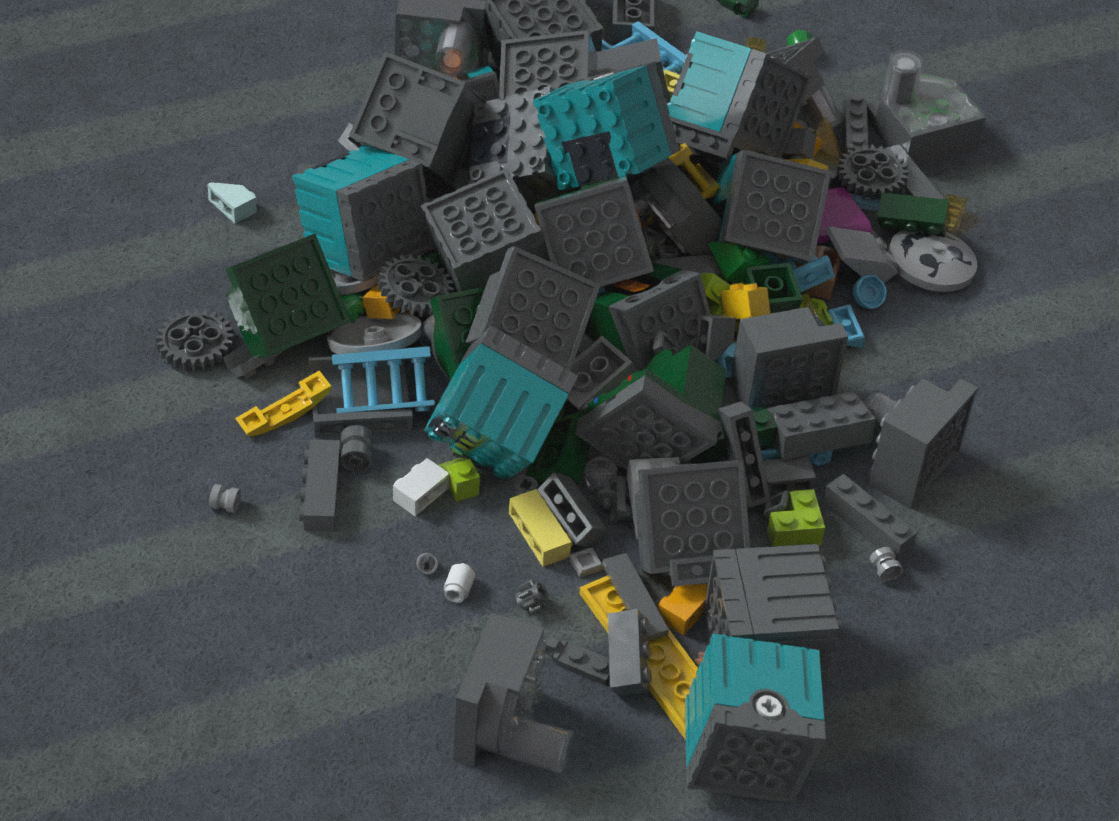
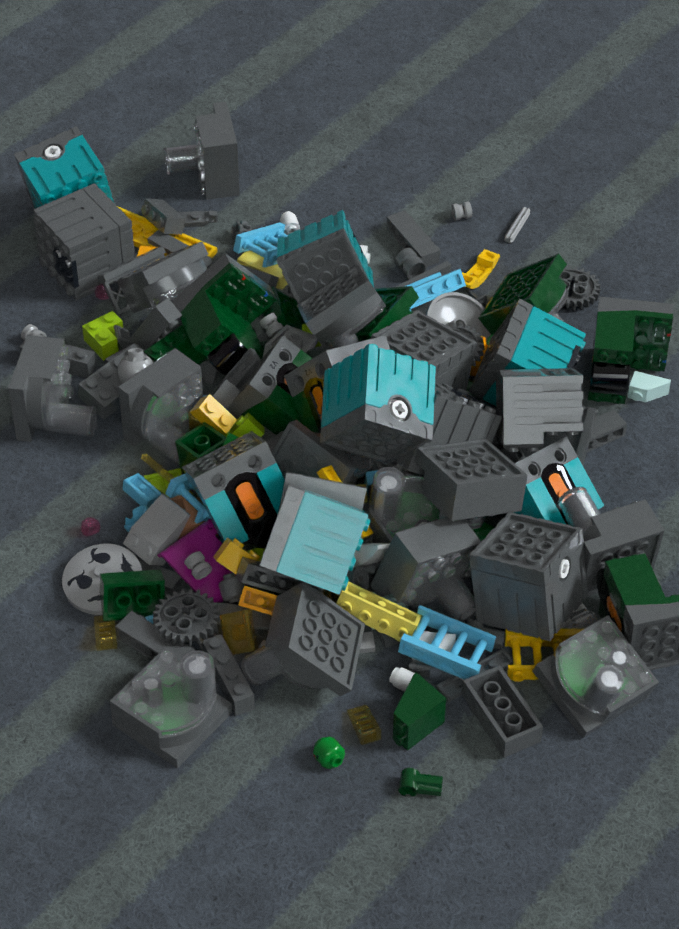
camera: 155 degrees right, 0 degrees up
(171, 454) = (517, 225): none -> light grey axle
(237, 211) = (625, 338): none -> dark green piece
(523, 552) = (264, 238): none -> medium azure fence
(711, 19) = (418, 712): none -> dark green slope
(806, 380) = (133, 364): none -> light grey brick
(840, 196) = (198, 566): none -> light grey wheel
(921, 312) = (90, 522): none -> clear pink plate

